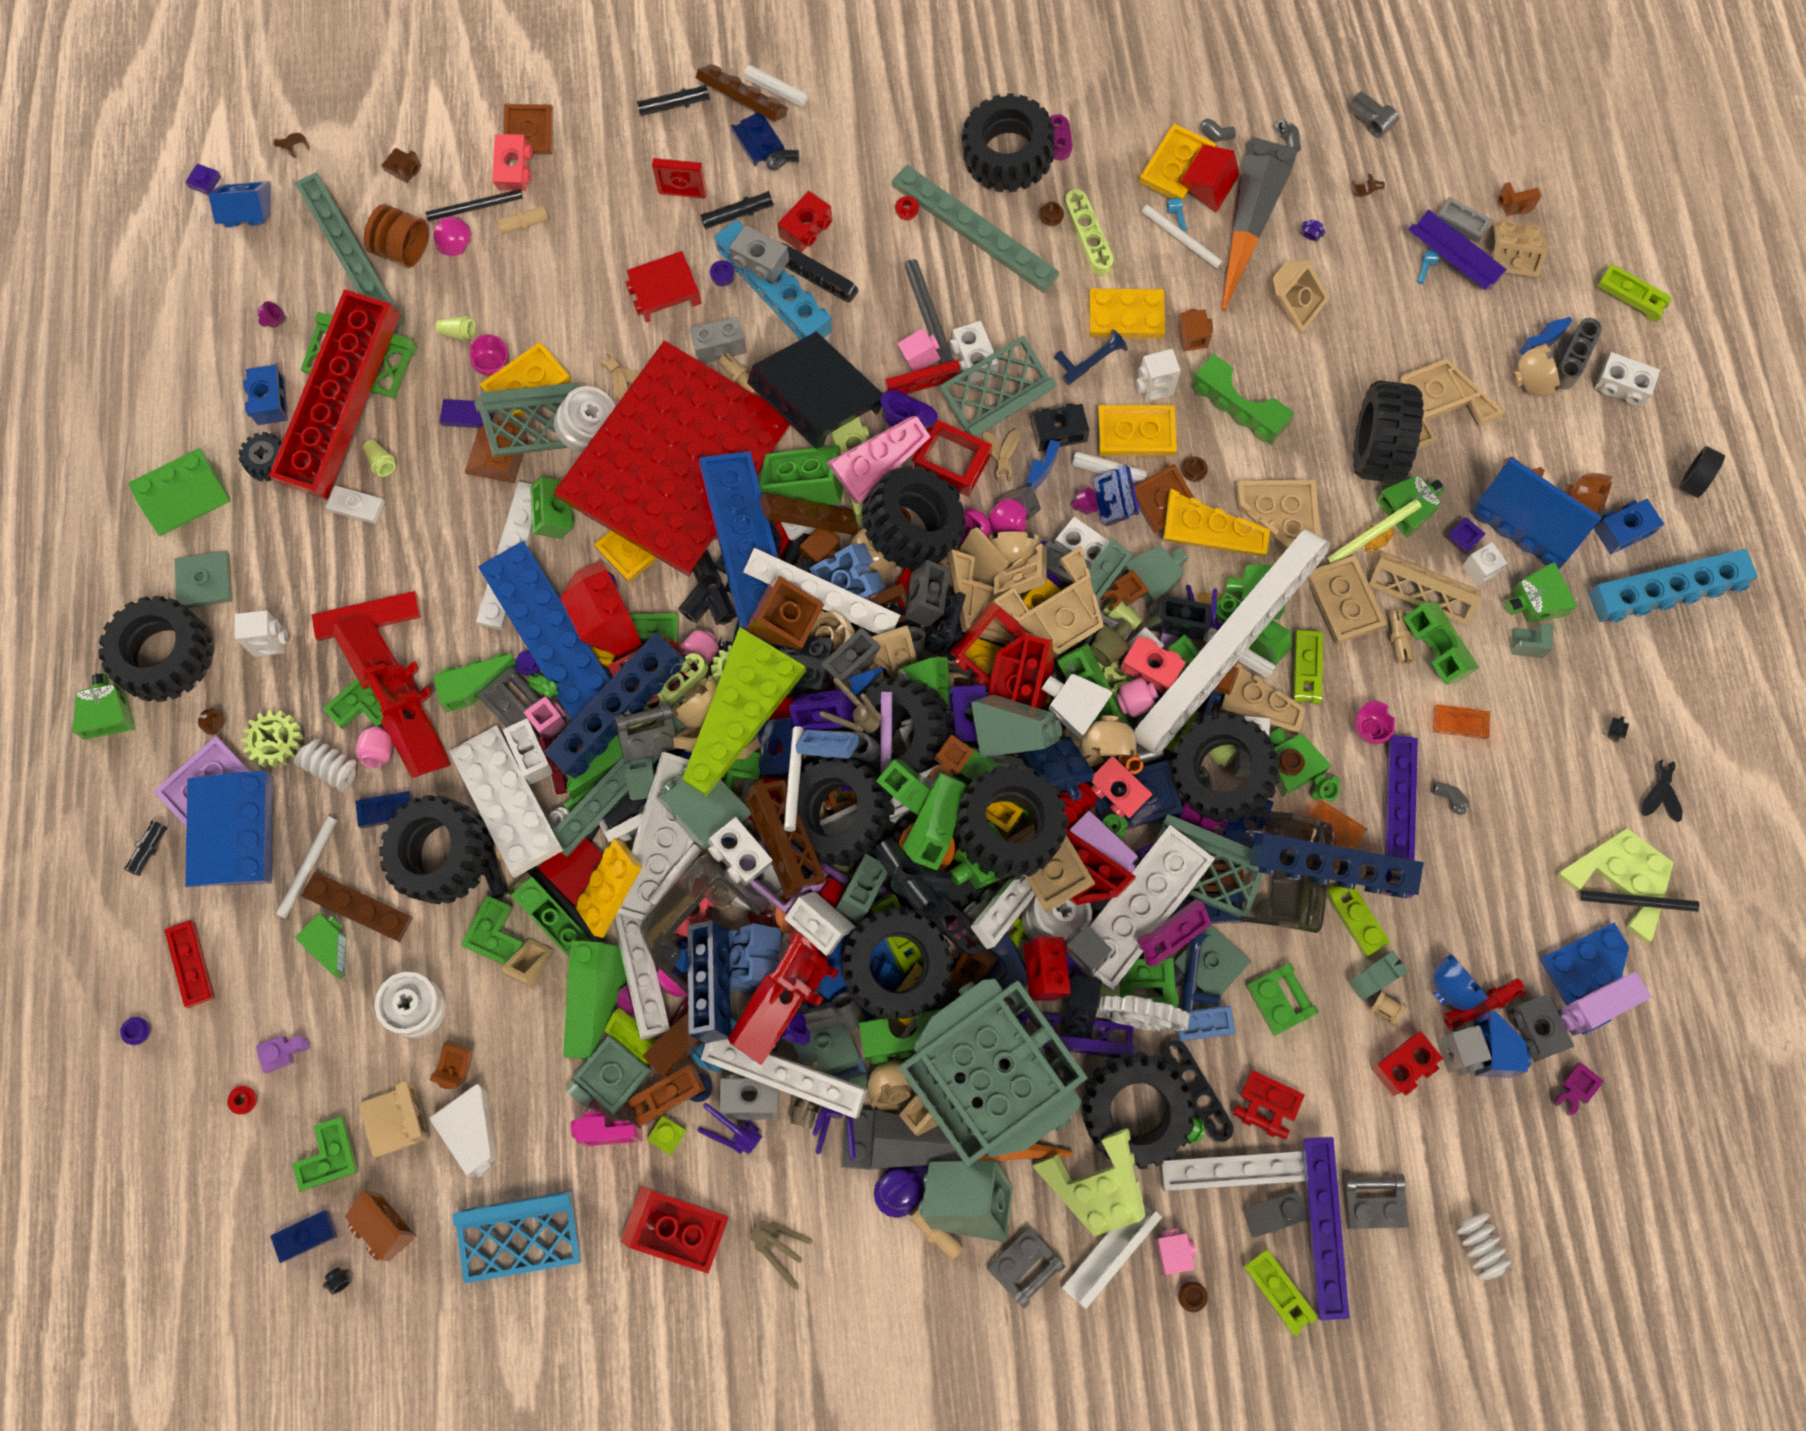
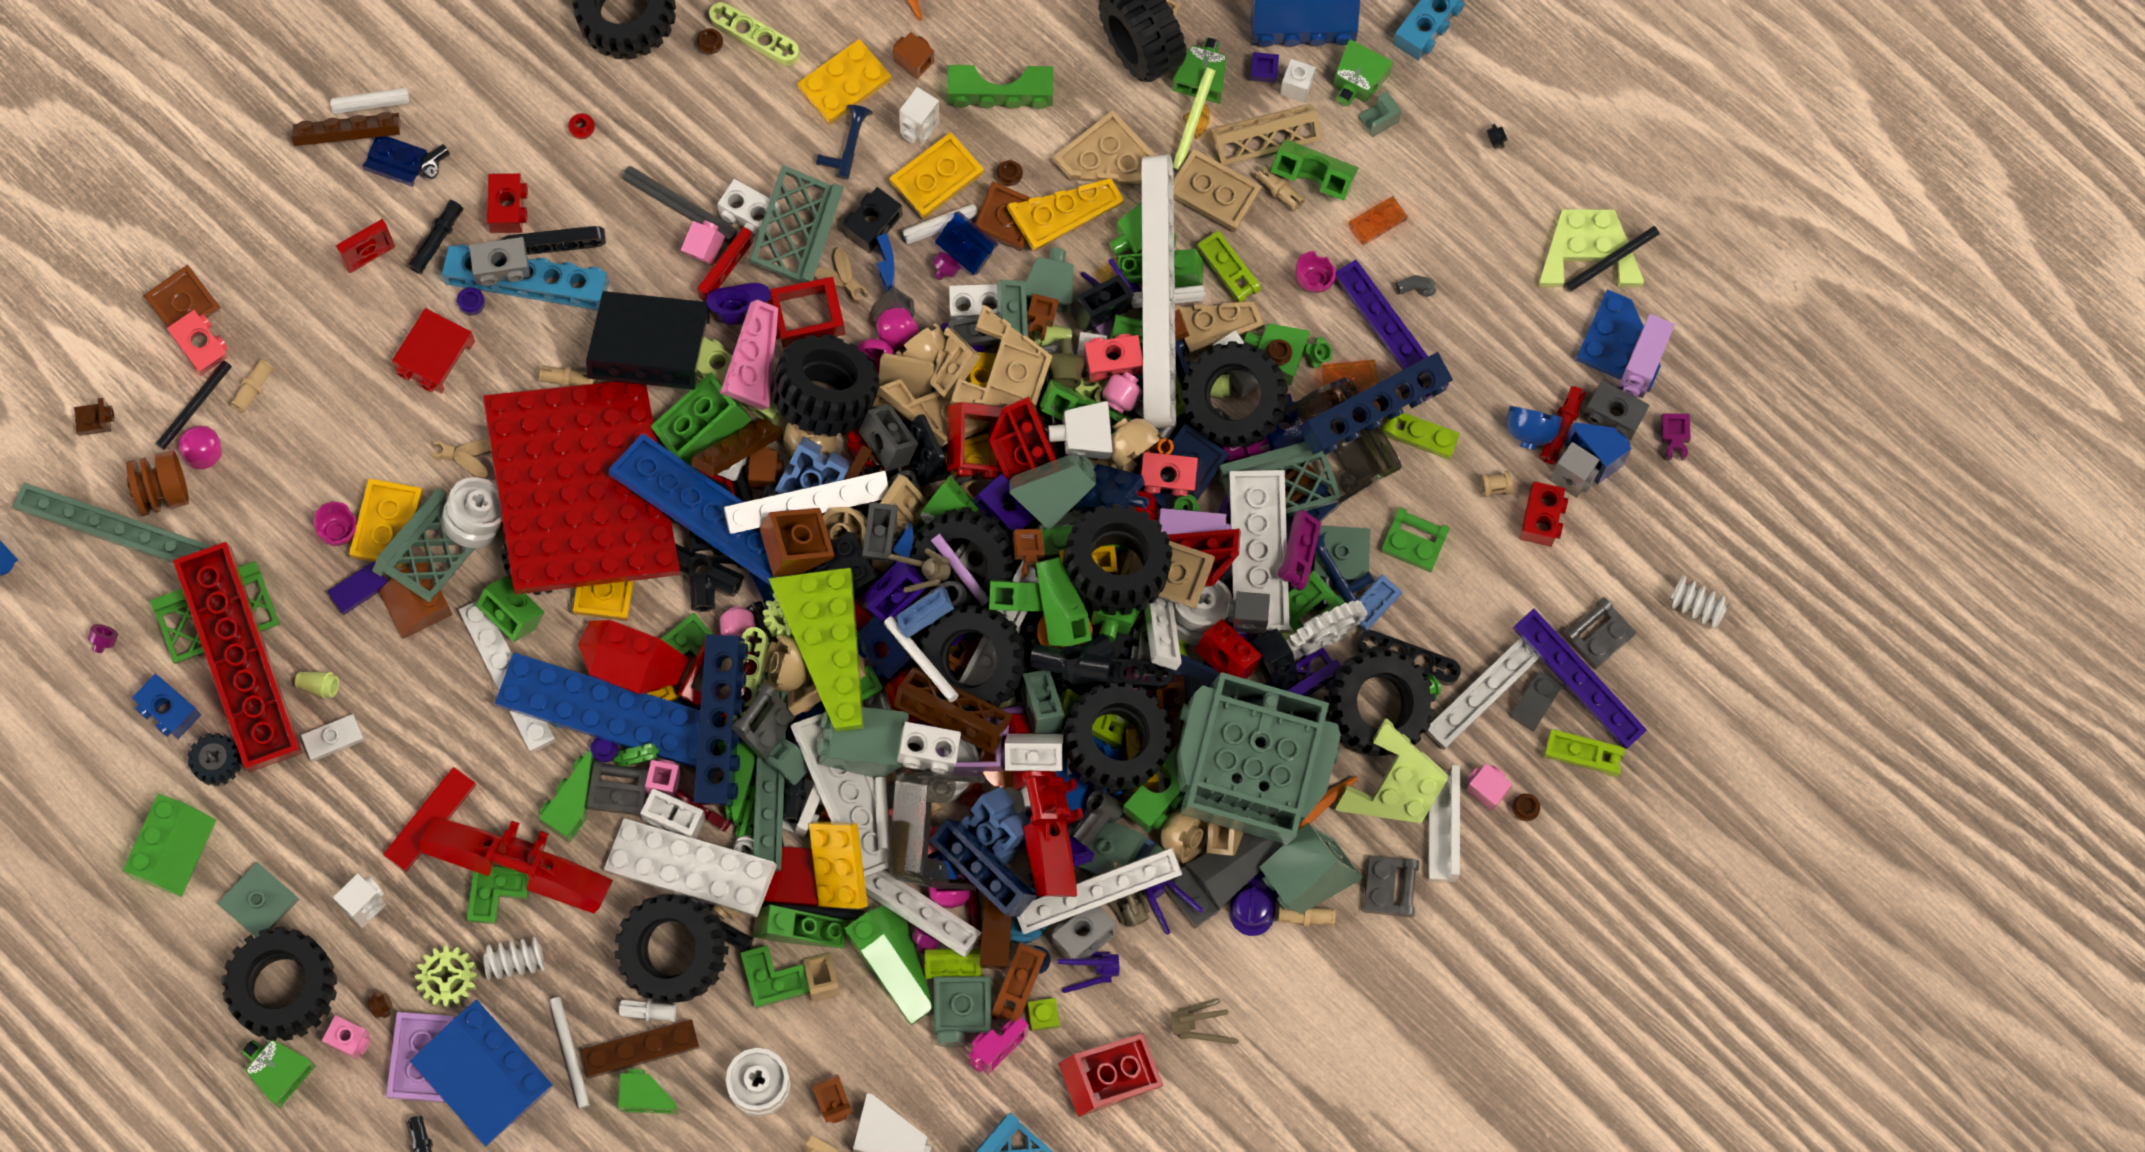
camera: 45 degrees left, 0 degrees up
(167, 725) = (346, 1038): none -> bright pink brick
(374, 747) = (539, 914): bright pink head -> none
(375, 872) = (648, 1010): none -> white axle
(380, 809) = (592, 956): clear blue plate -> none
(458, 328) = (281, 522): yellowish green cone -> none
(673, 100) = (289, 181): black pin -> none
(717, 339) = (523, 361): light grey brick -> none
(976, 229) = (655, 101): sand green plate -> none
(1271, 1096) = (1466, 617): red plate -> none
(1378, 975) = (1471, 465): sand green leg -> none
(1663, 793) = (1566, 161): black piece -> none

